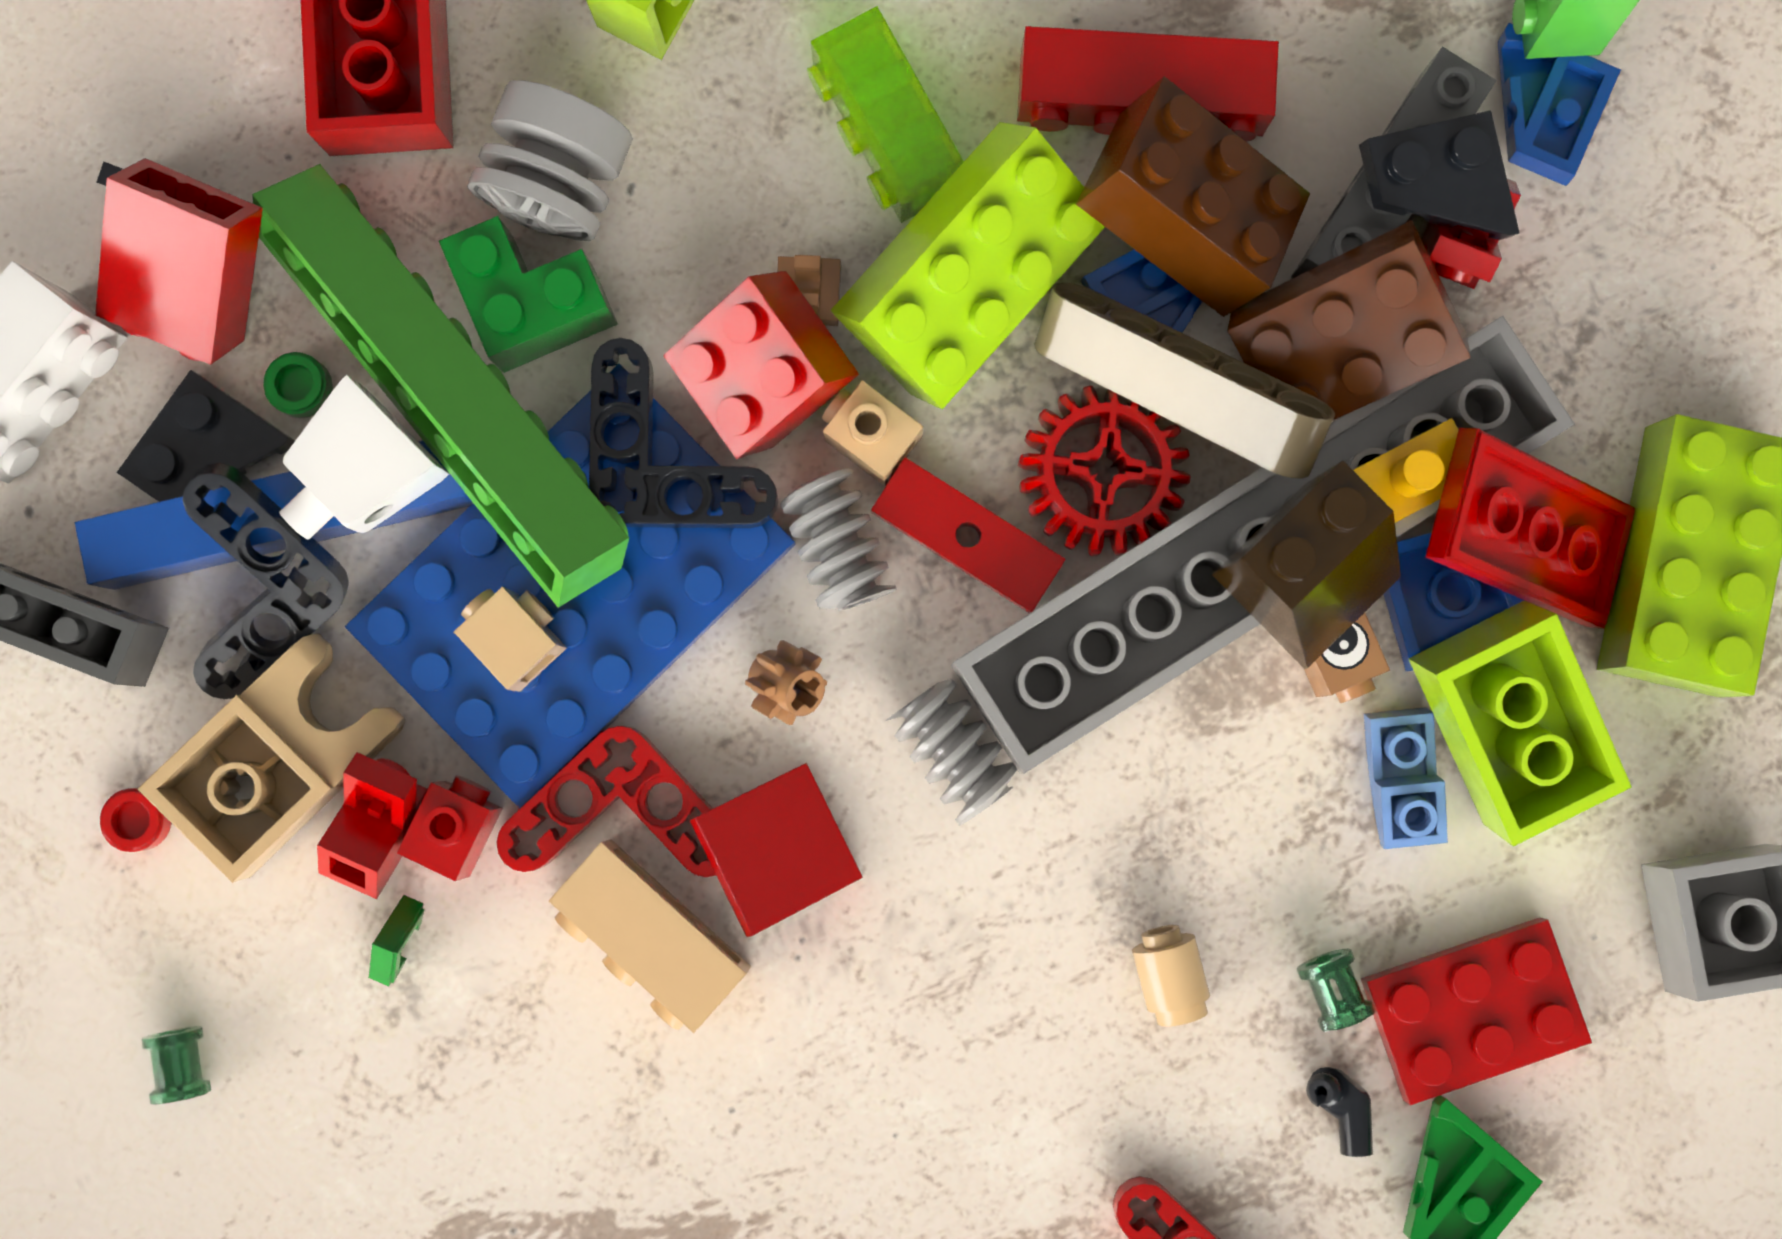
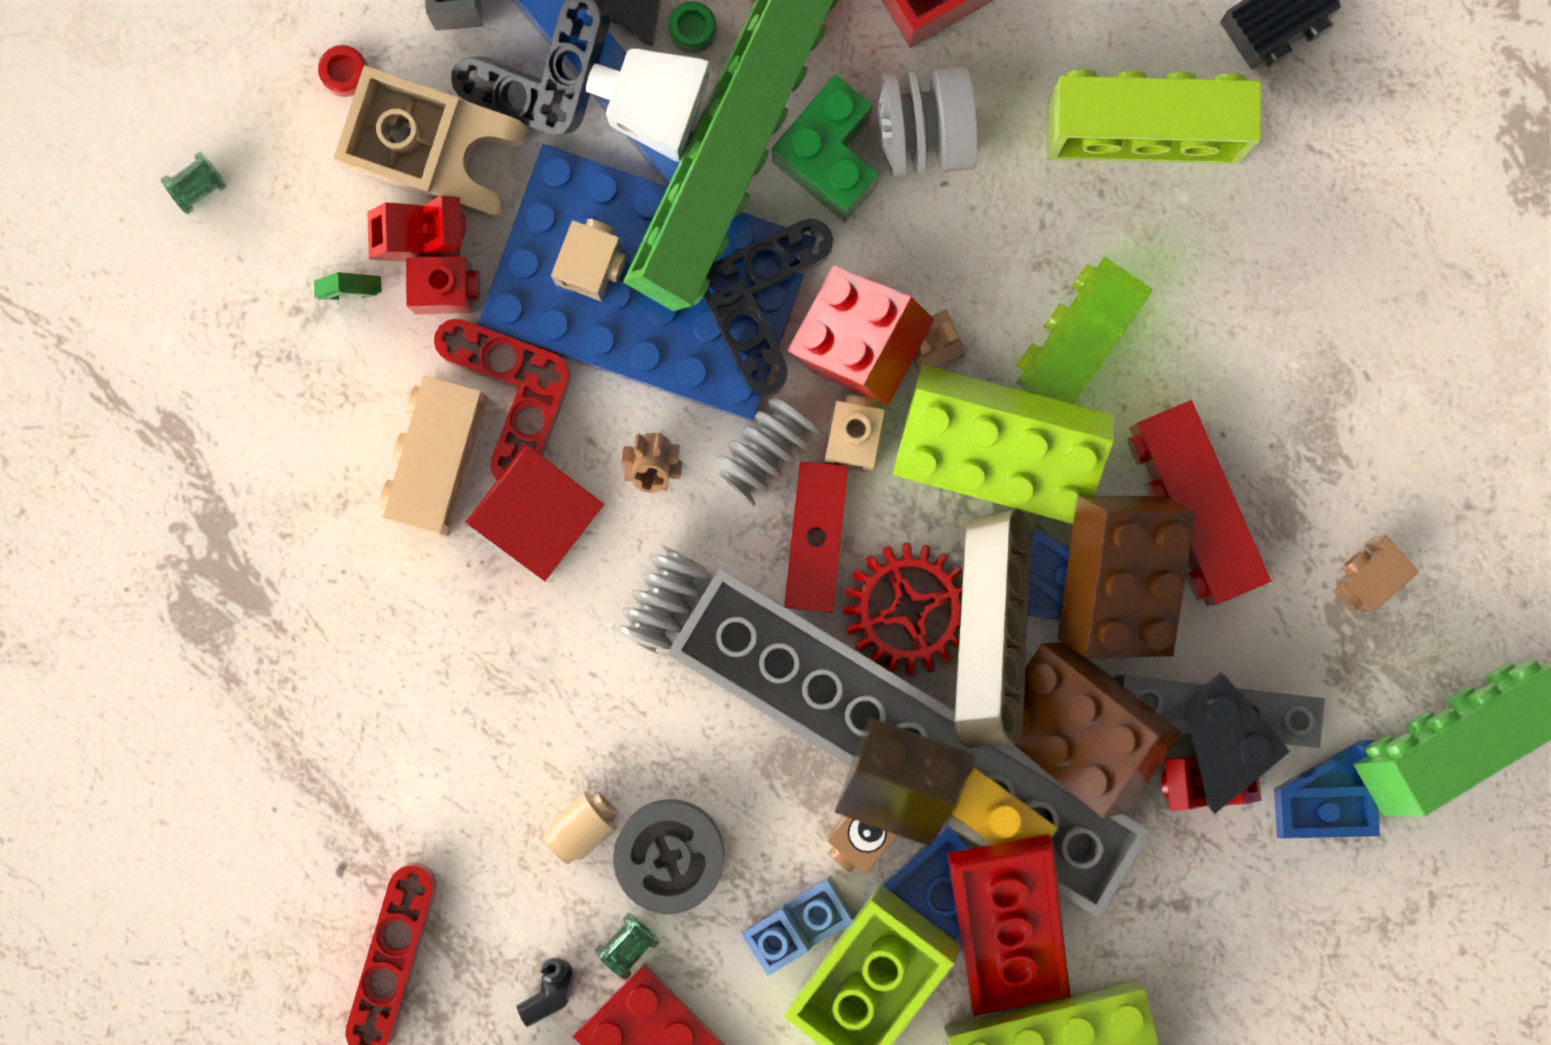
camera: 65 degrees right, 0 degrees up
(1253, 938) = (632, 871): none -> dark grey wheel

